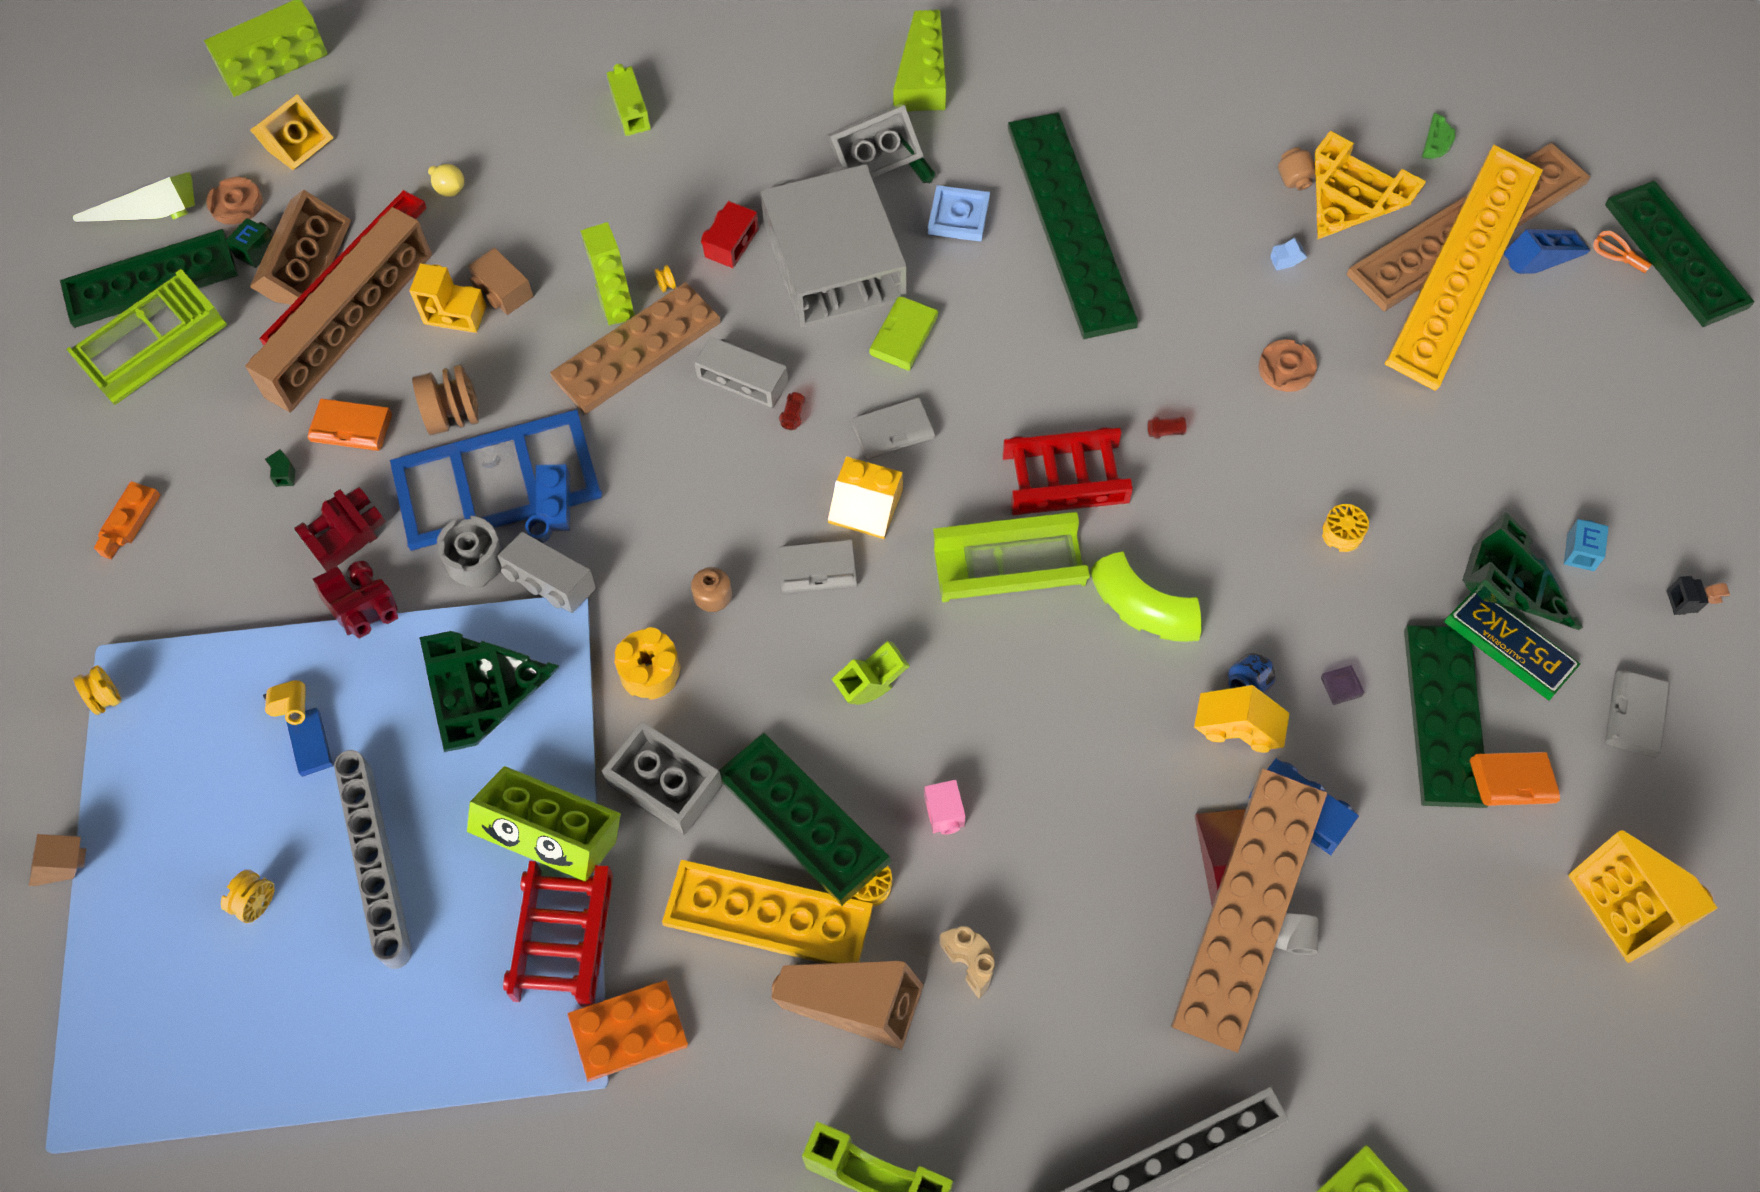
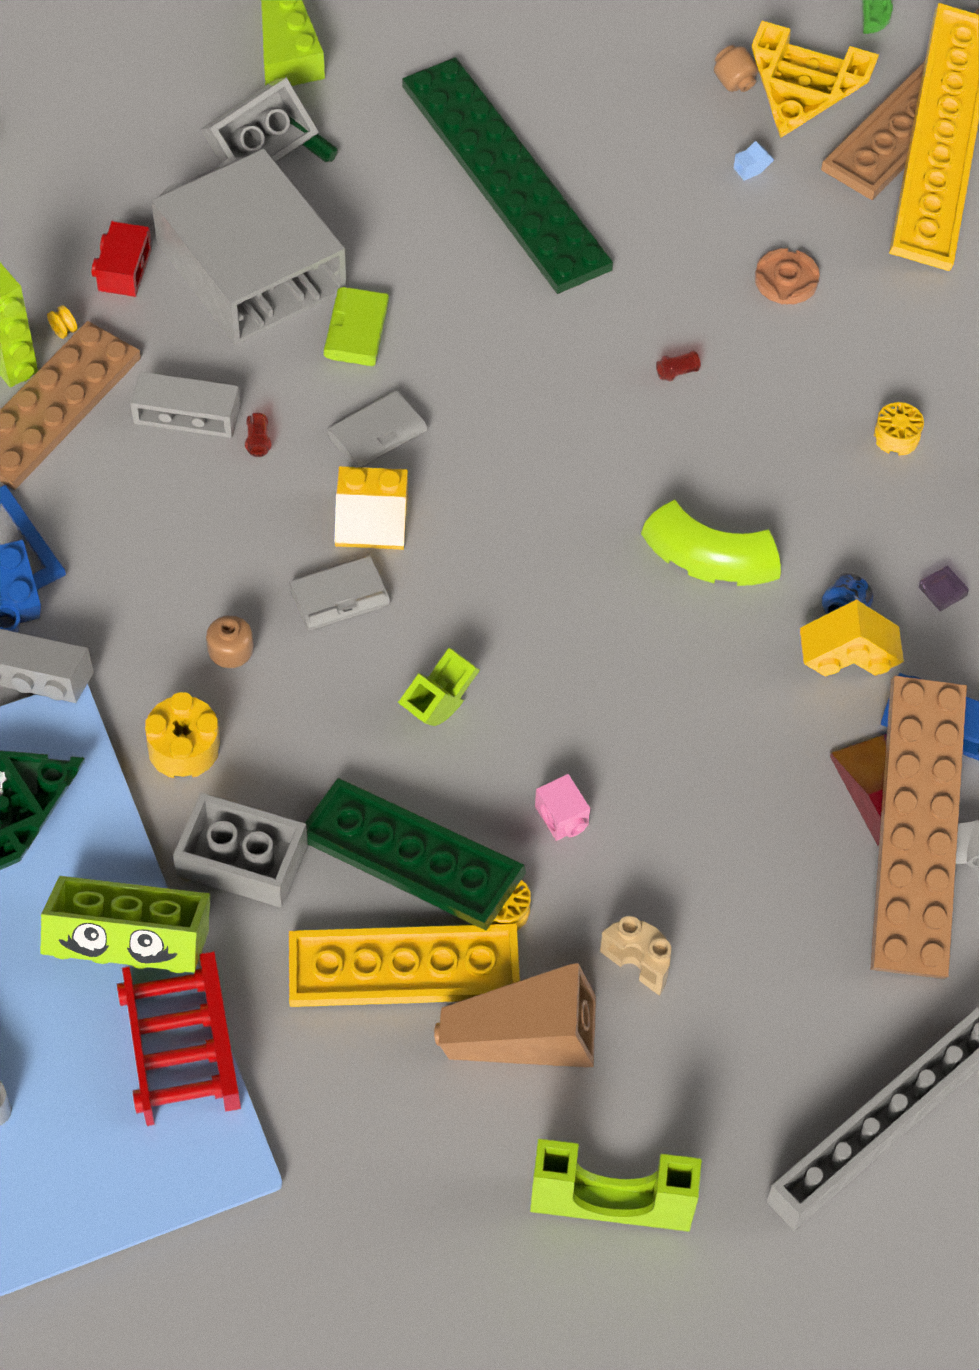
camera: 20 degrees left, 5 degrees down
(627, 1030) = (286, 1121): orange plate -> none
(958, 213) = (378, 186): light blue plate -> none
(1008, 556) = (548, 535): lime piece -> none
(1073, 496) = (592, 460): red fence -> none

